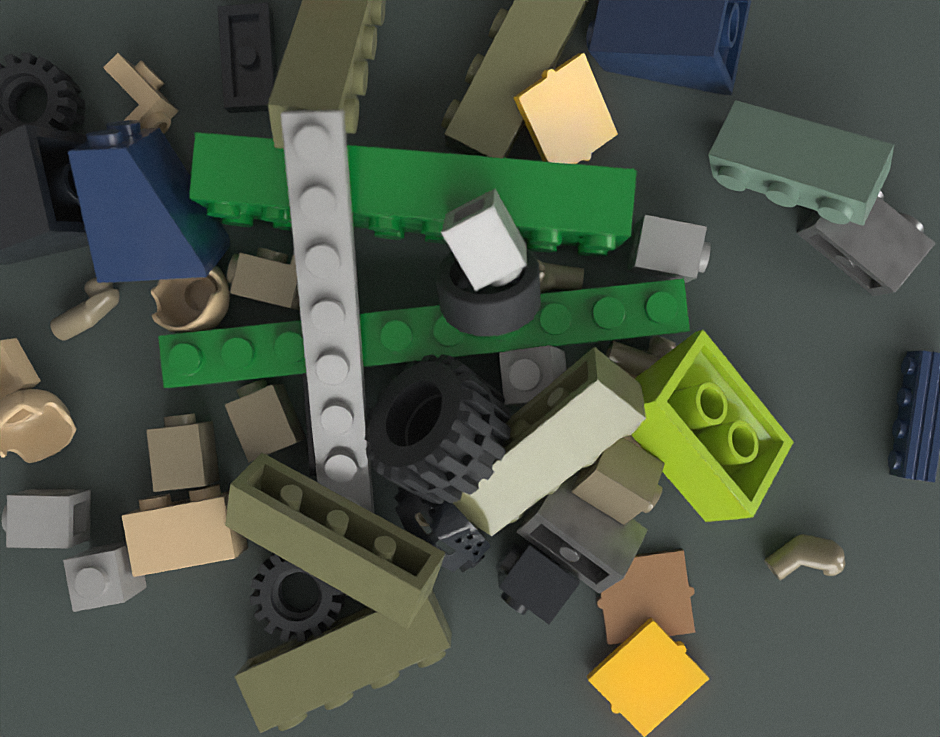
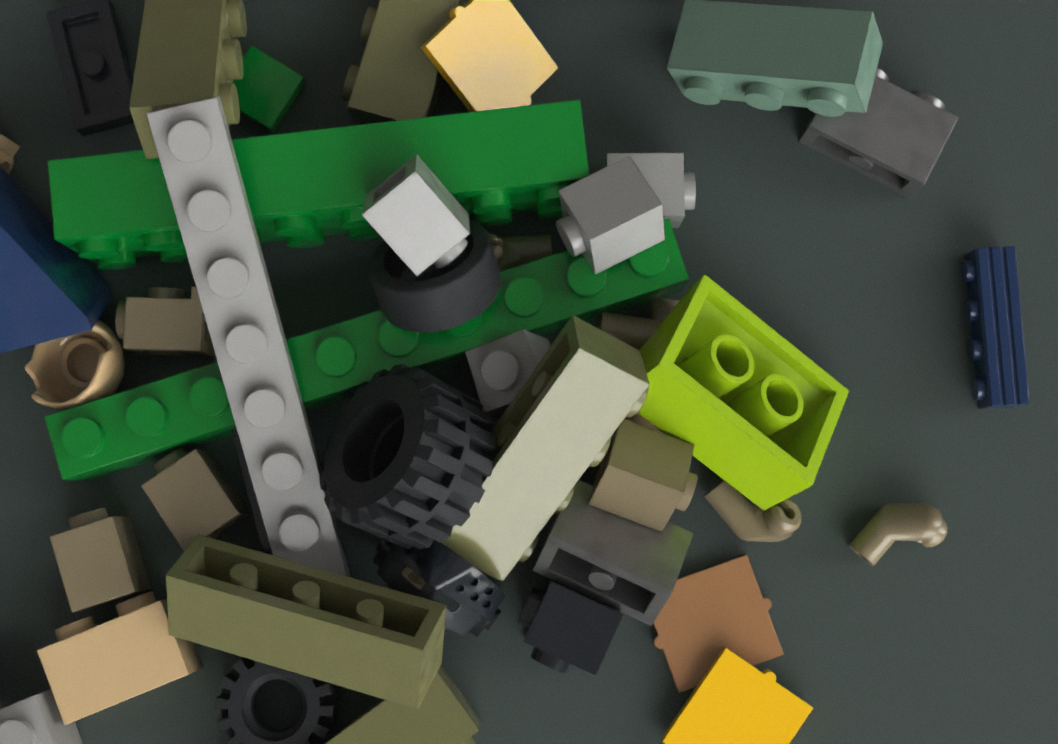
camera: 10 degrees left, 5 degrees down
(382, 104) = (267, 89): none -> green tile
(640, 269) = (610, 215): none -> light grey brick
(691, 525) = (749, 520): none -> dark tan arm

